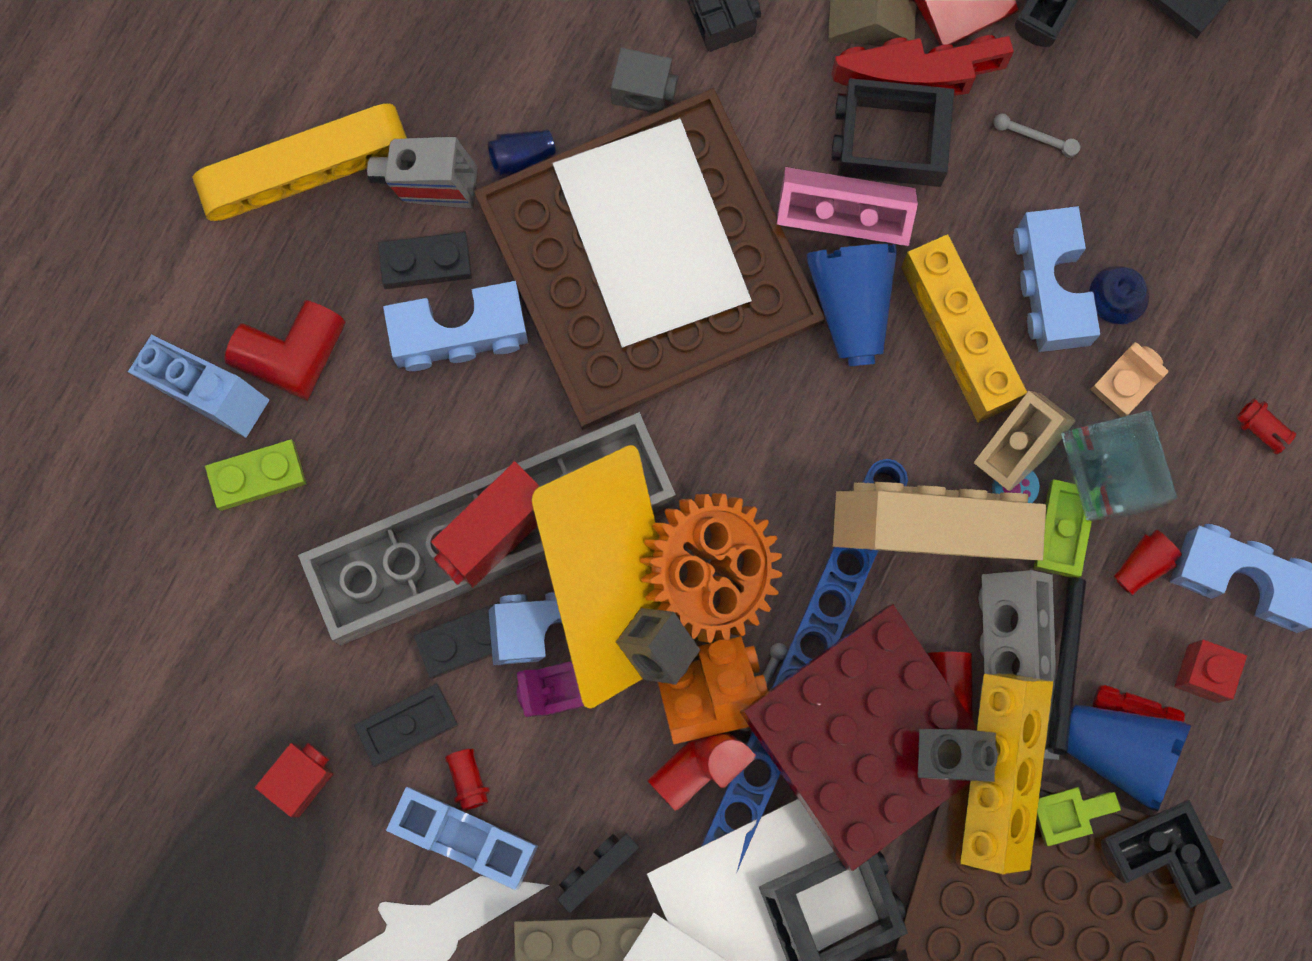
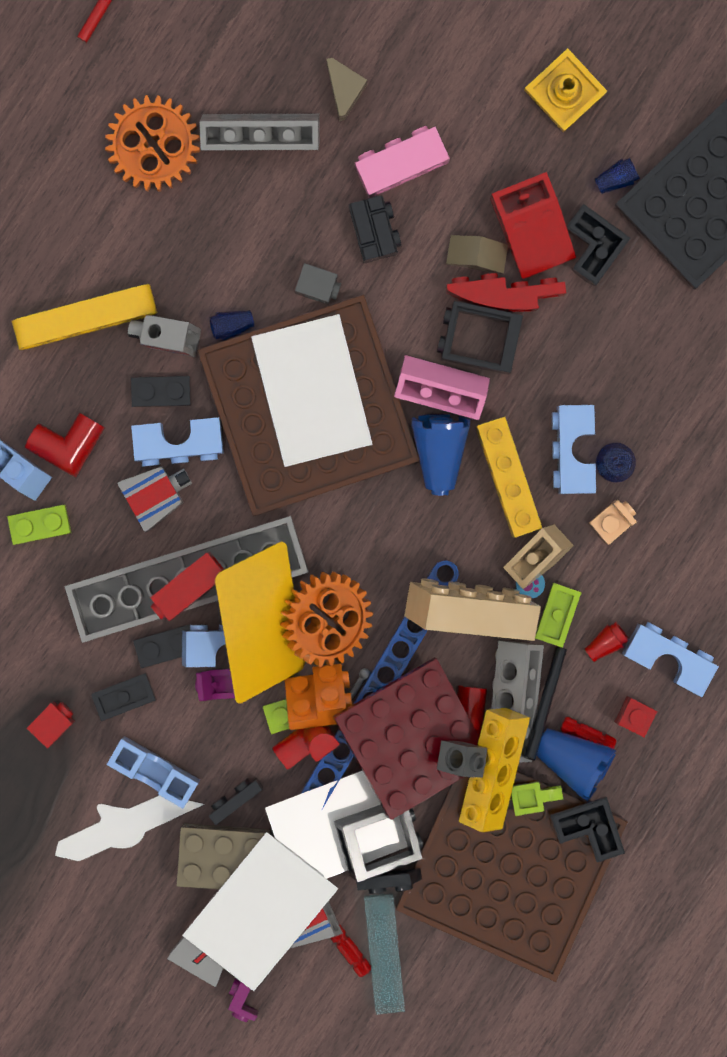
camera: 10 degrees right, 10 degrees up
(428, 409) = (154, 495): none -> torso
(467, 780) = (159, 735): red pin -> none
(651, 731) = (277, 716): none -> lime plate
(658, 646) = (287, 667): dark grey brick -> none
(1069, 147) = (598, 357): light grey hinge -> none
(1119, 467) = (594, 581): clear light blue slope -> none
(1263, 425) = (697, 561): red pin -> none

